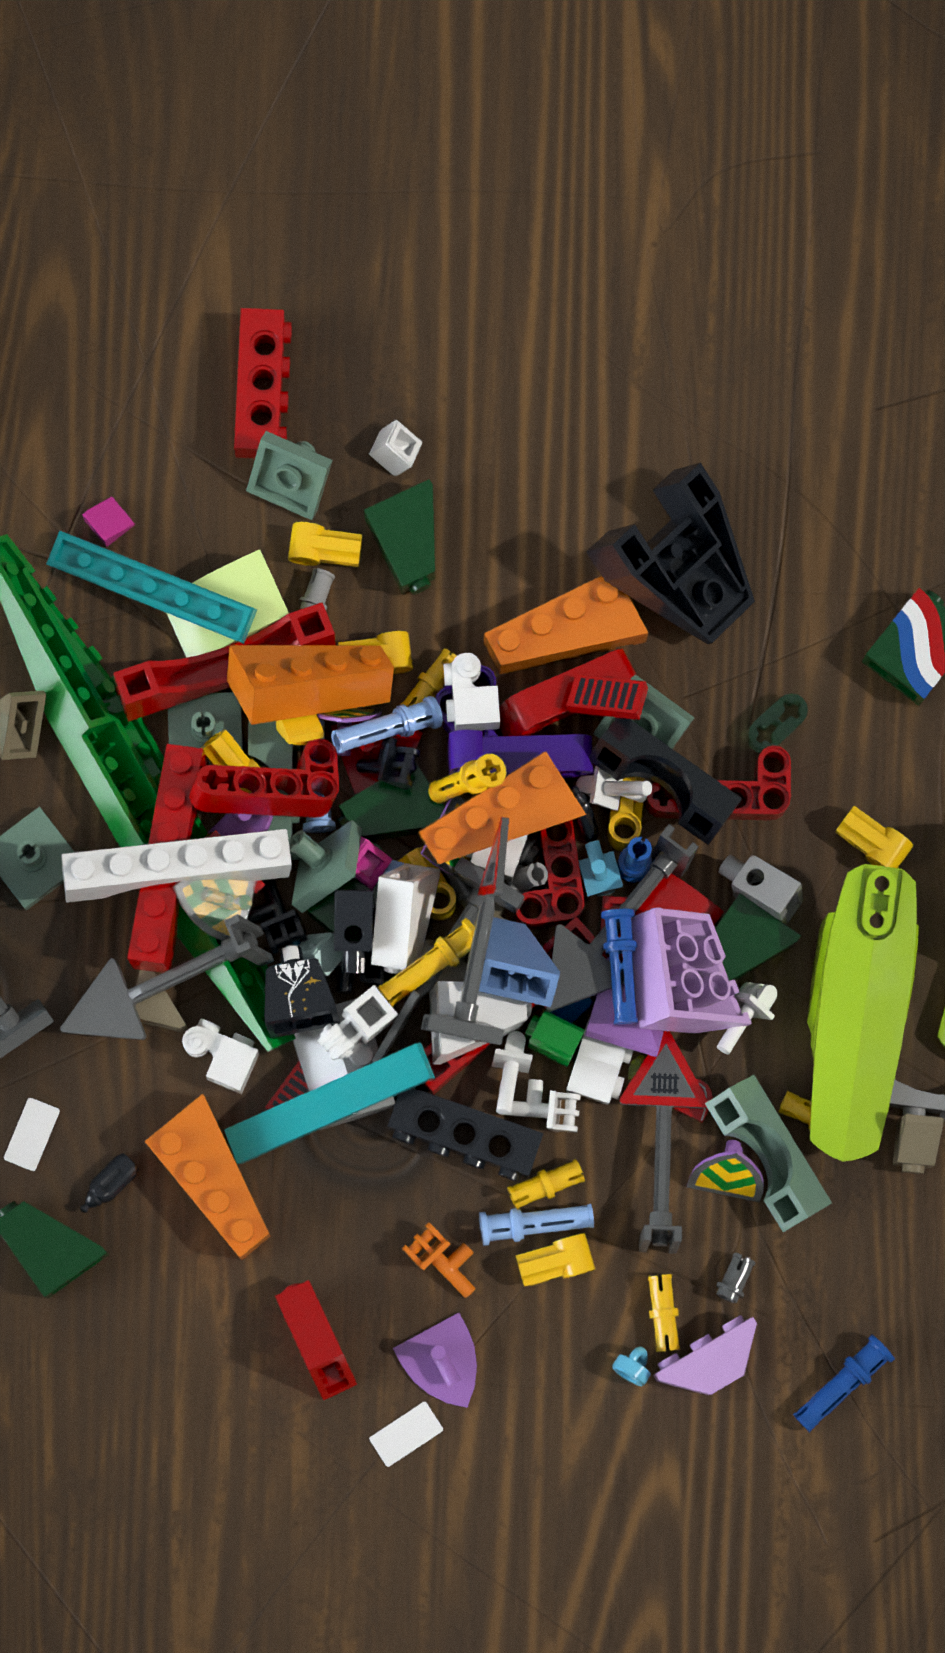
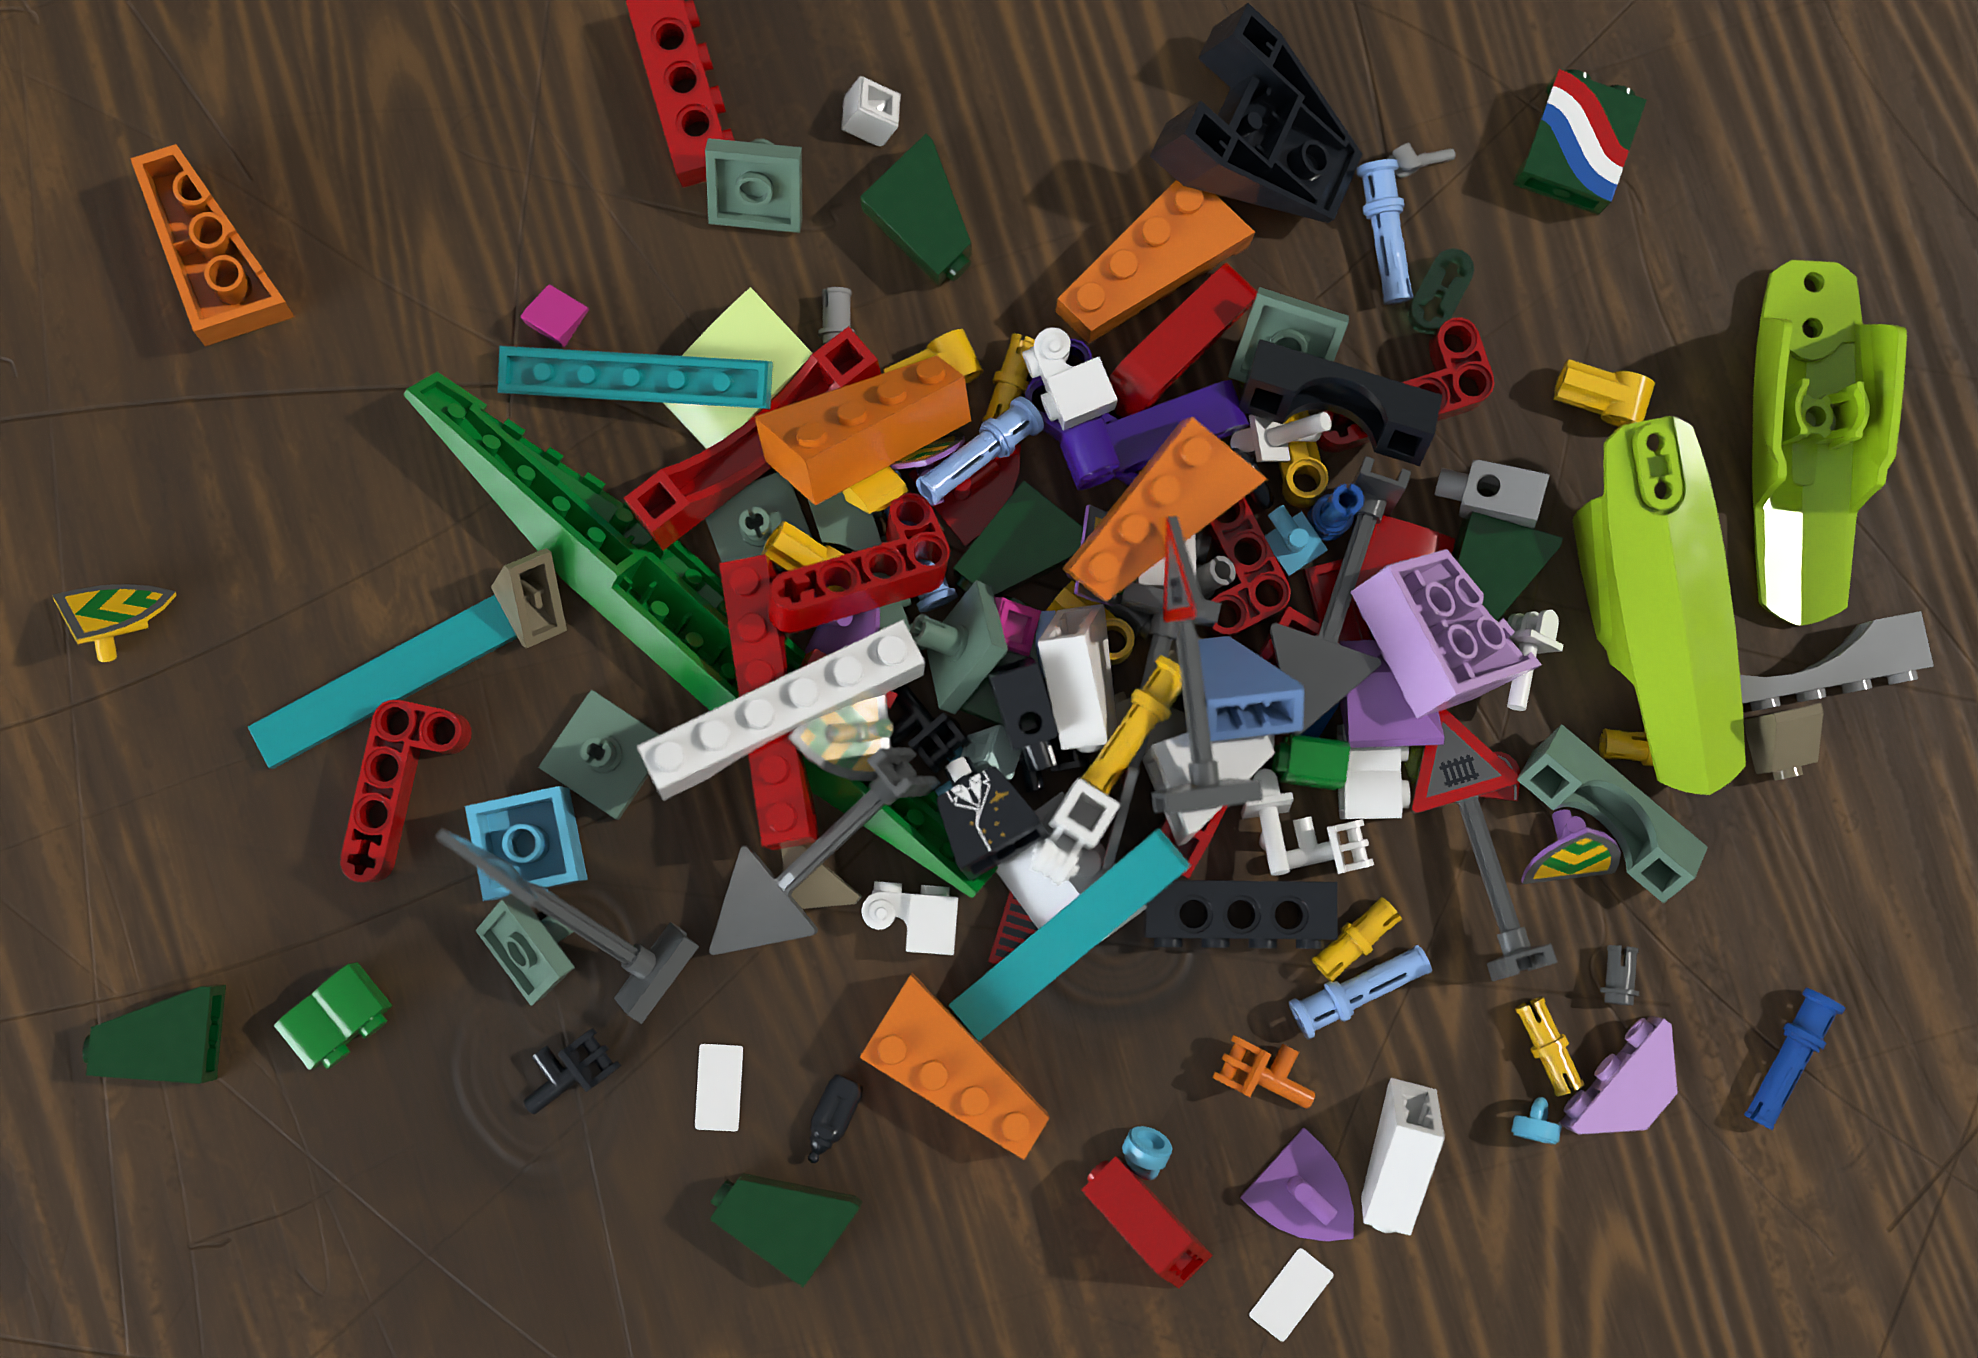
camera: 15 degrees left, 5 degrees up
(314, 544) = (815, 260): yellow piece -> none
(334, 1285) = (1146, 1151): none -> medium azure tile
(393, 764) = (1001, 494): black arm -> none
(472, 778) = (1106, 485): yellow pin -> none
(522, 1356) = (1402, 1157): none -> white slope
(564, 1258) = (1411, 1021): yellow piece -> none
(607, 697) = (1237, 325): red tile -> none
(623, 1011) = (1391, 705): blue pin -> none
(754, 648) = (1383, 210): none -> light blue pin
(784, 619) = (1409, 162): none -> light grey hand

